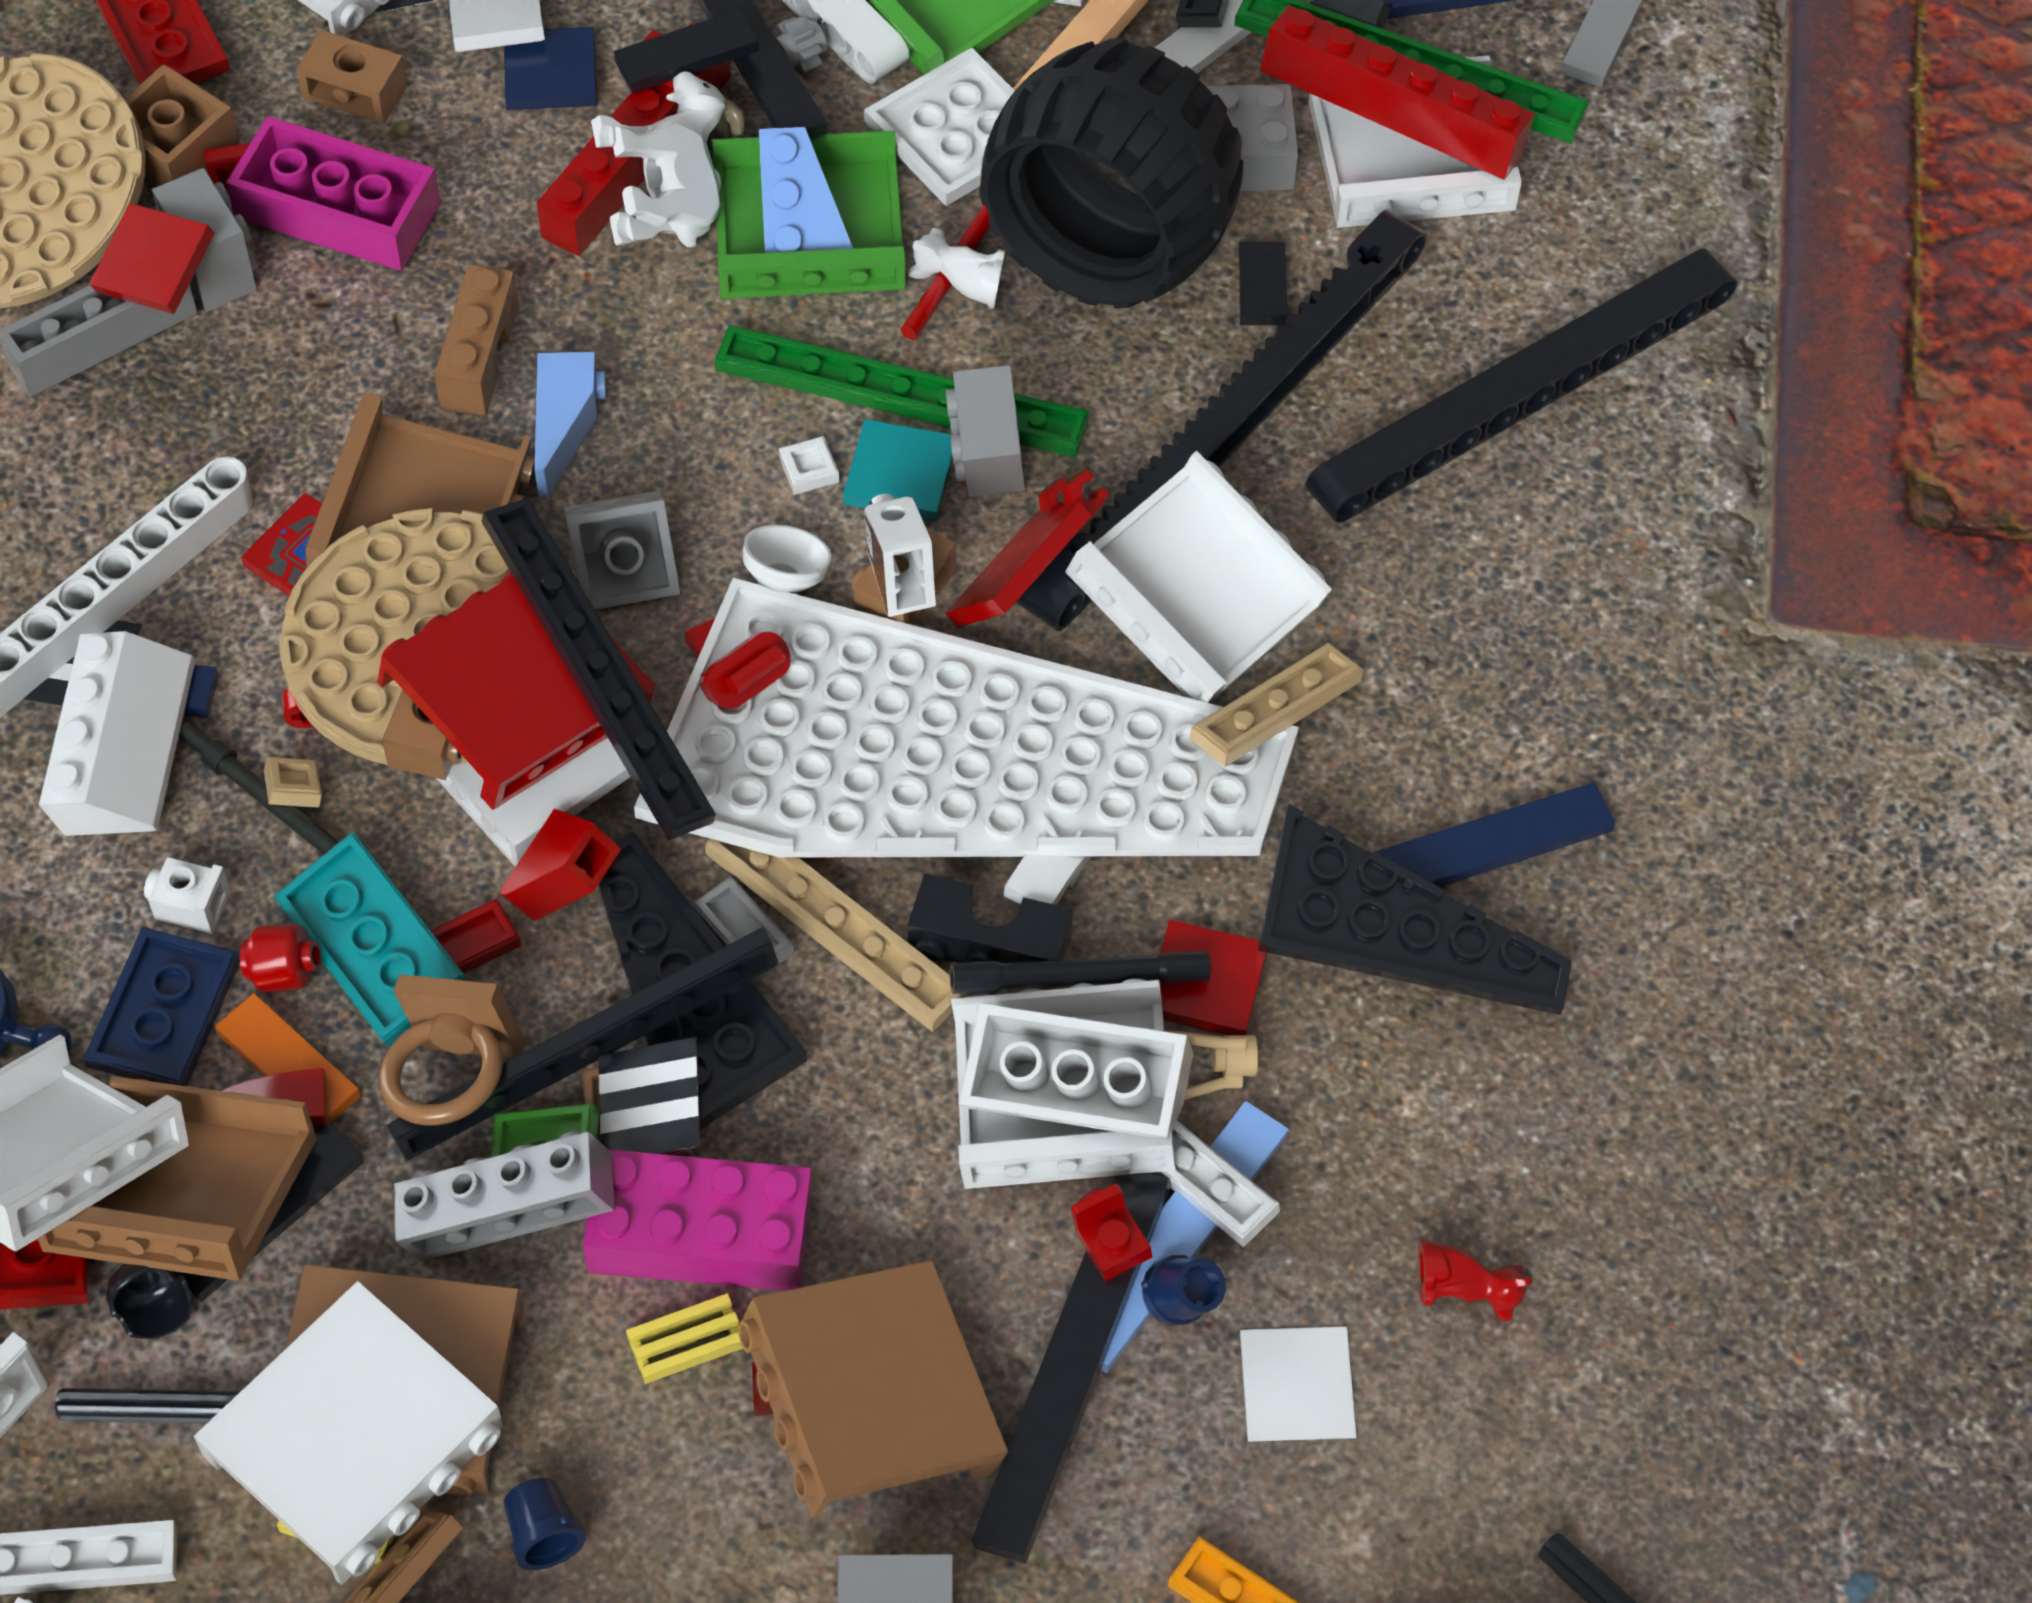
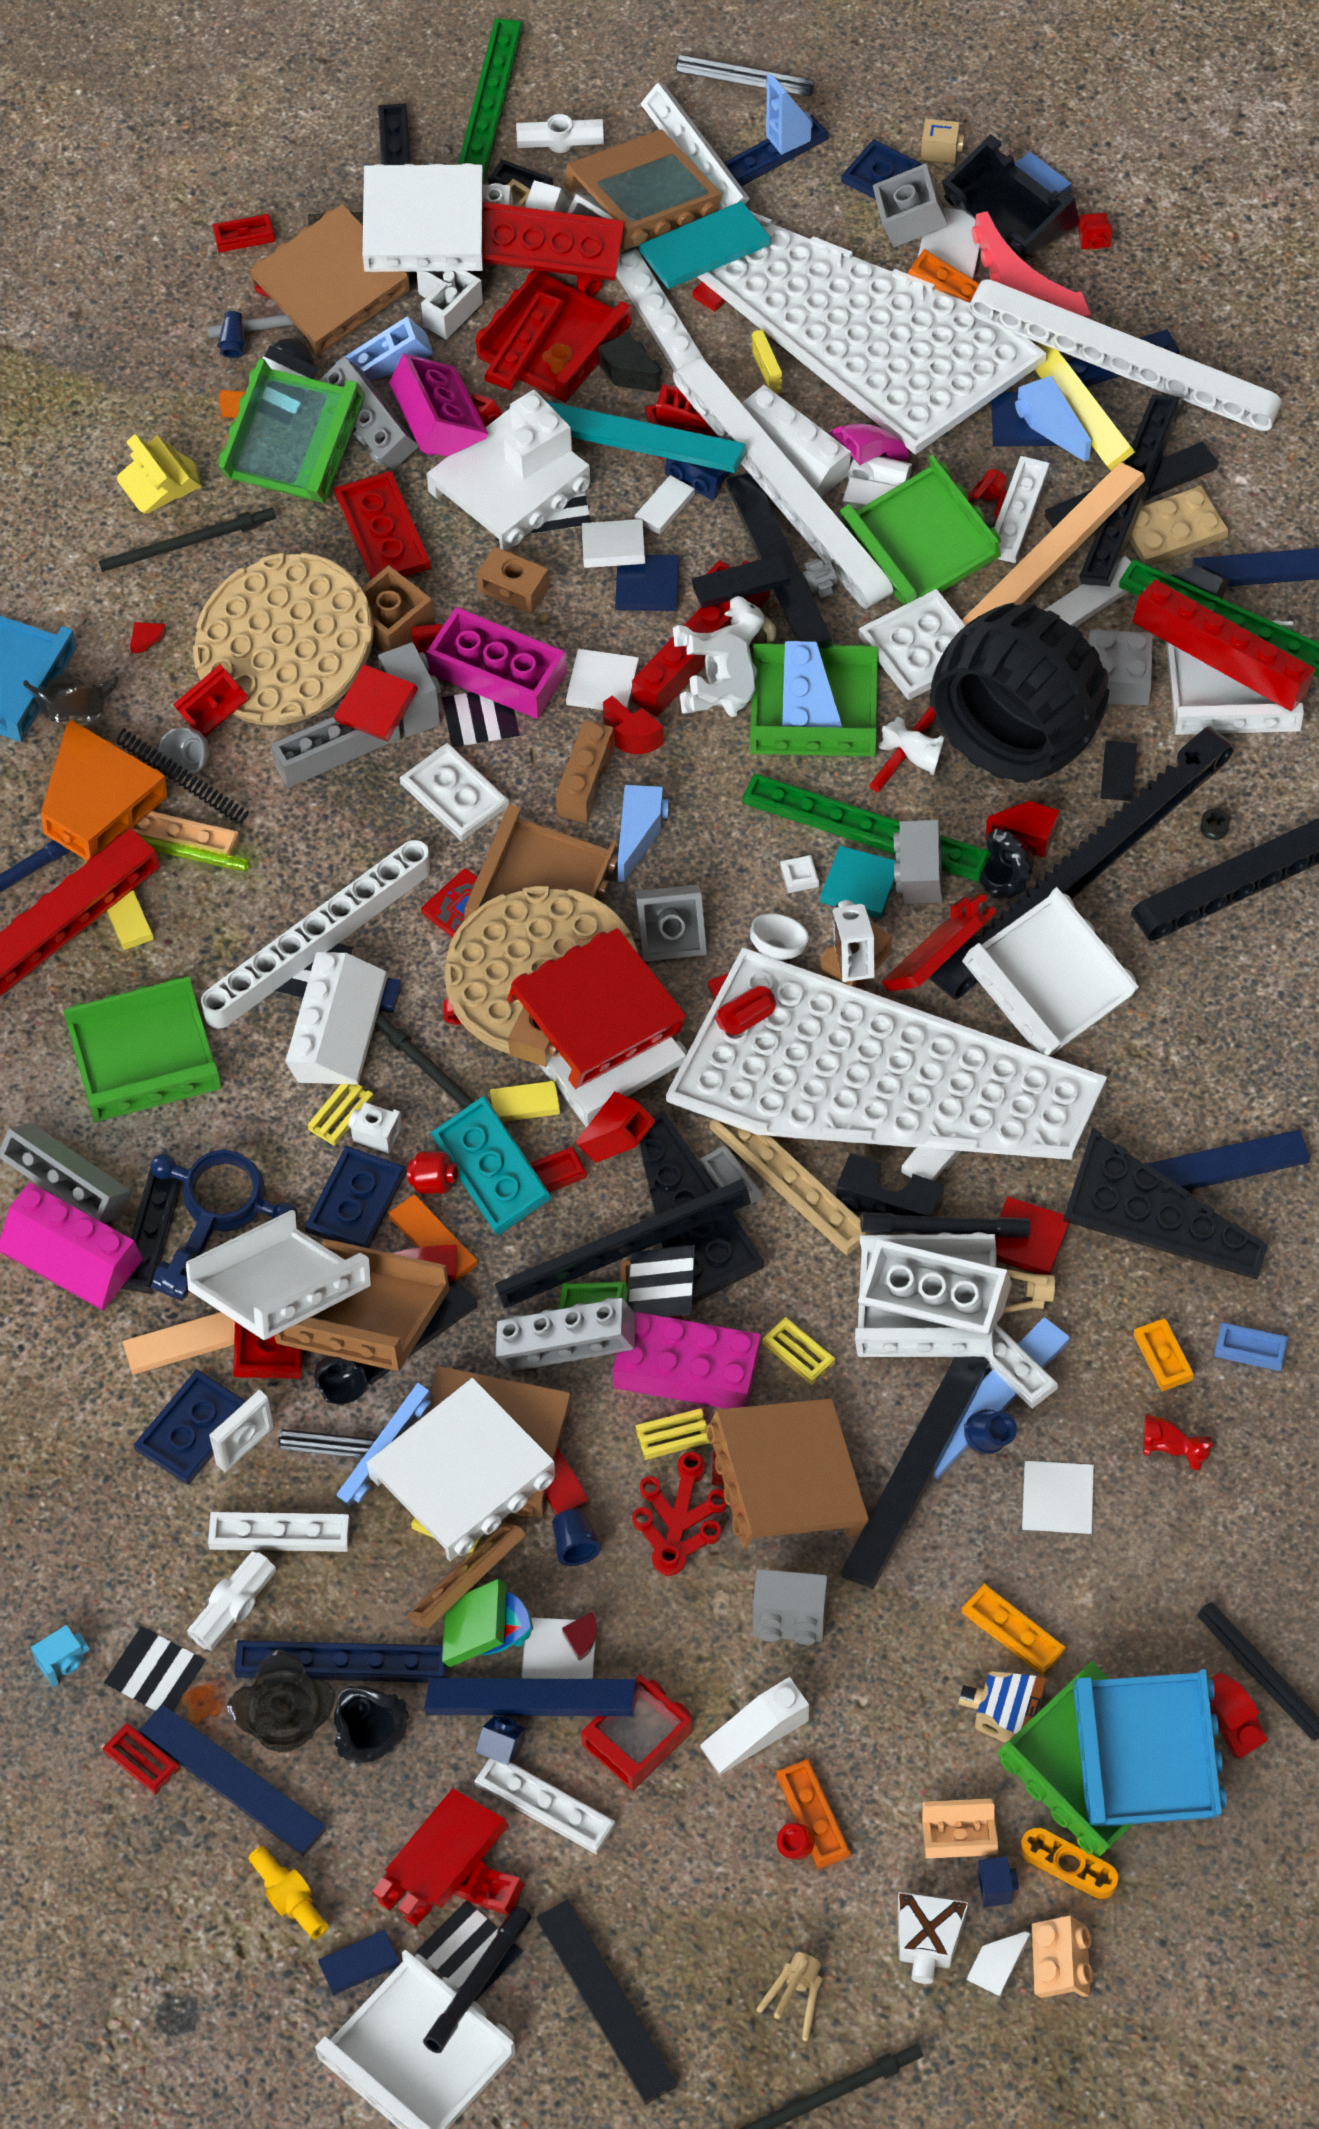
camera: 10 degrees right, 0 degrees up
(115, 867) = (330, 1105): none -> light yellow tile
(269, 1334) = (414, 1406): none -> light blue plate
(282, 384) = (454, 791): none -> white tile
(292, 782) = (446, 1059): tan tile -> none
(312, 278) = (477, 719): none -> black sticker
(419, 835) = (525, 1101): none -> light yellow tile
(456, 1020) = (540, 1221): medium nougat tile -> none
(493, 210) = (600, 676): none -> white tile
(522, 1446) = (565, 1490): none -> red slope
(544, 278) = (632, 732): none -> red brick
(598, 669) = (650, 1002): black tile -> none
(705, 1476) = (678, 1518): none -> red plant
(859, 1202) = (818, 1369): none -> light yellow tile
(1109, 1232) = (946, 1390): red bracket -> none
(1117, 428) = (1008, 866): none -> black hair
(1134, 373) = (1029, 821): none -> red slope
(1276, 704) = (1093, 1060): tan tile -> none
(1408, 360) = (1211, 832): none -> pearl dark grey bush
(1434, 1144) = (1163, 1354): none -> light orange plate
(1565, 1118) = (1251, 1346): none -> medium blue tile

